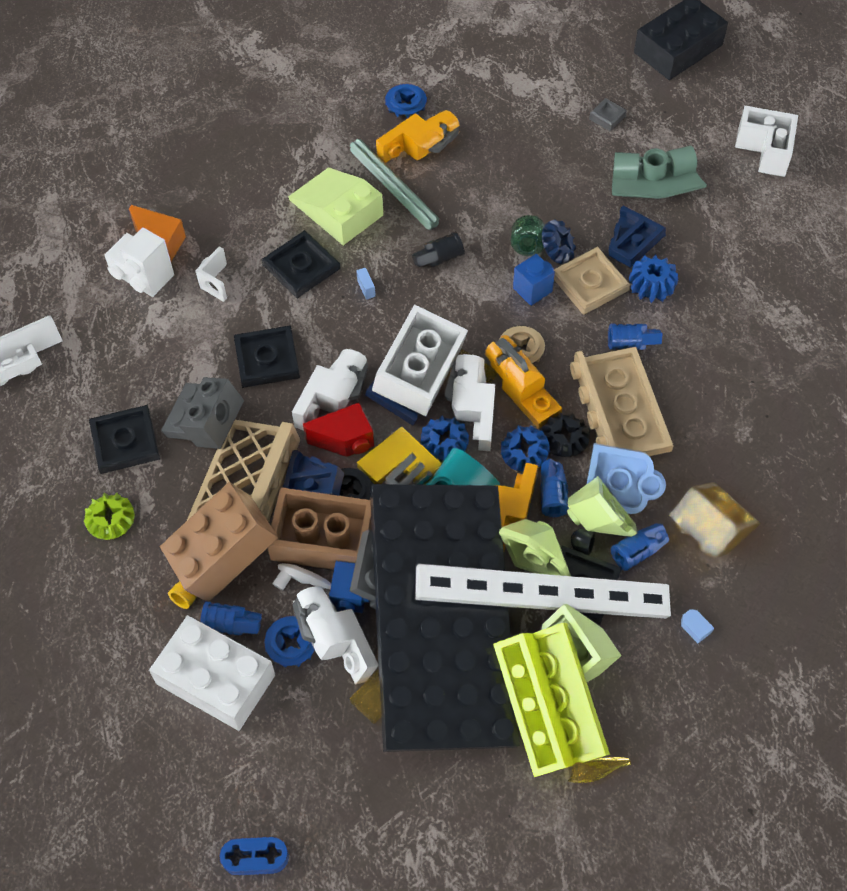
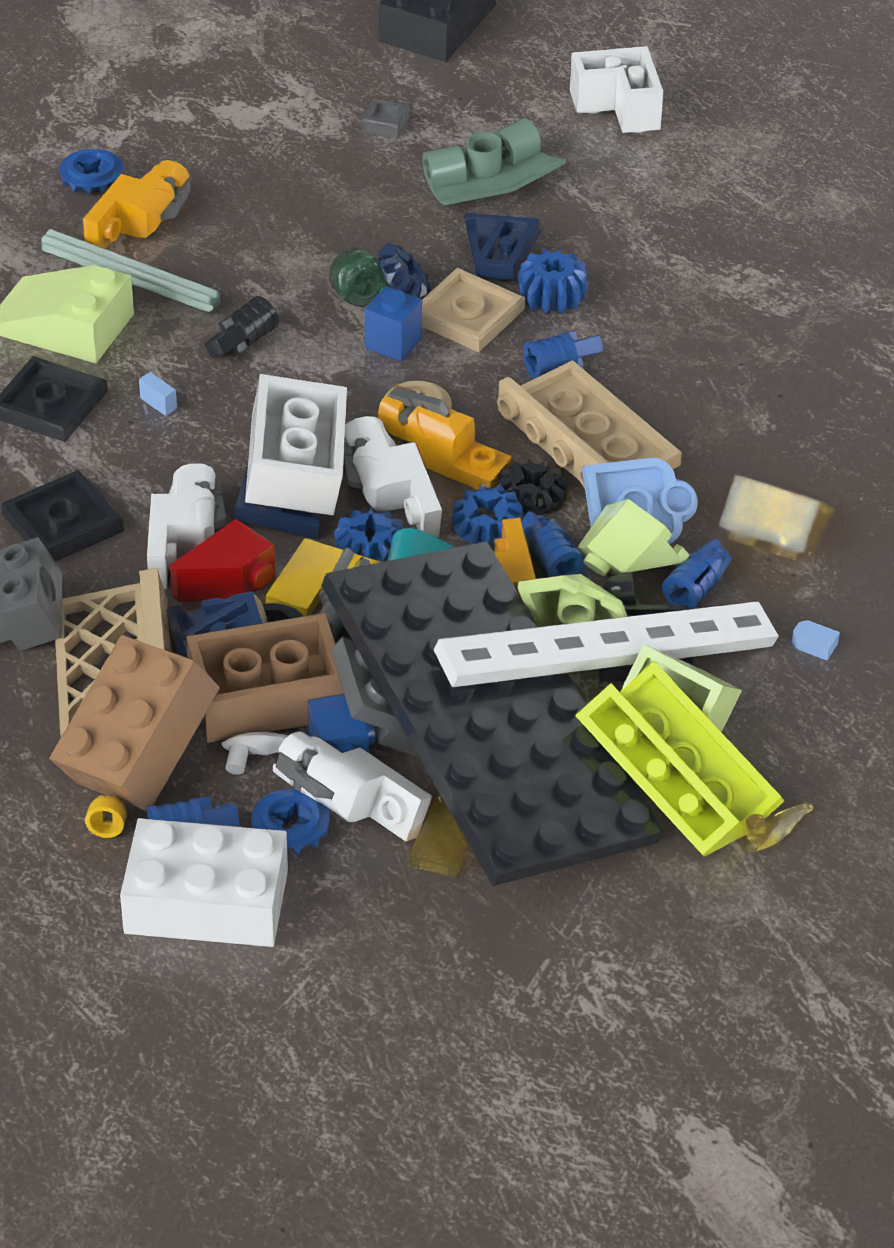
camera: 25 degrees left, 15 degrees down
(254, 847) = (379, 1067): blue beam -> none

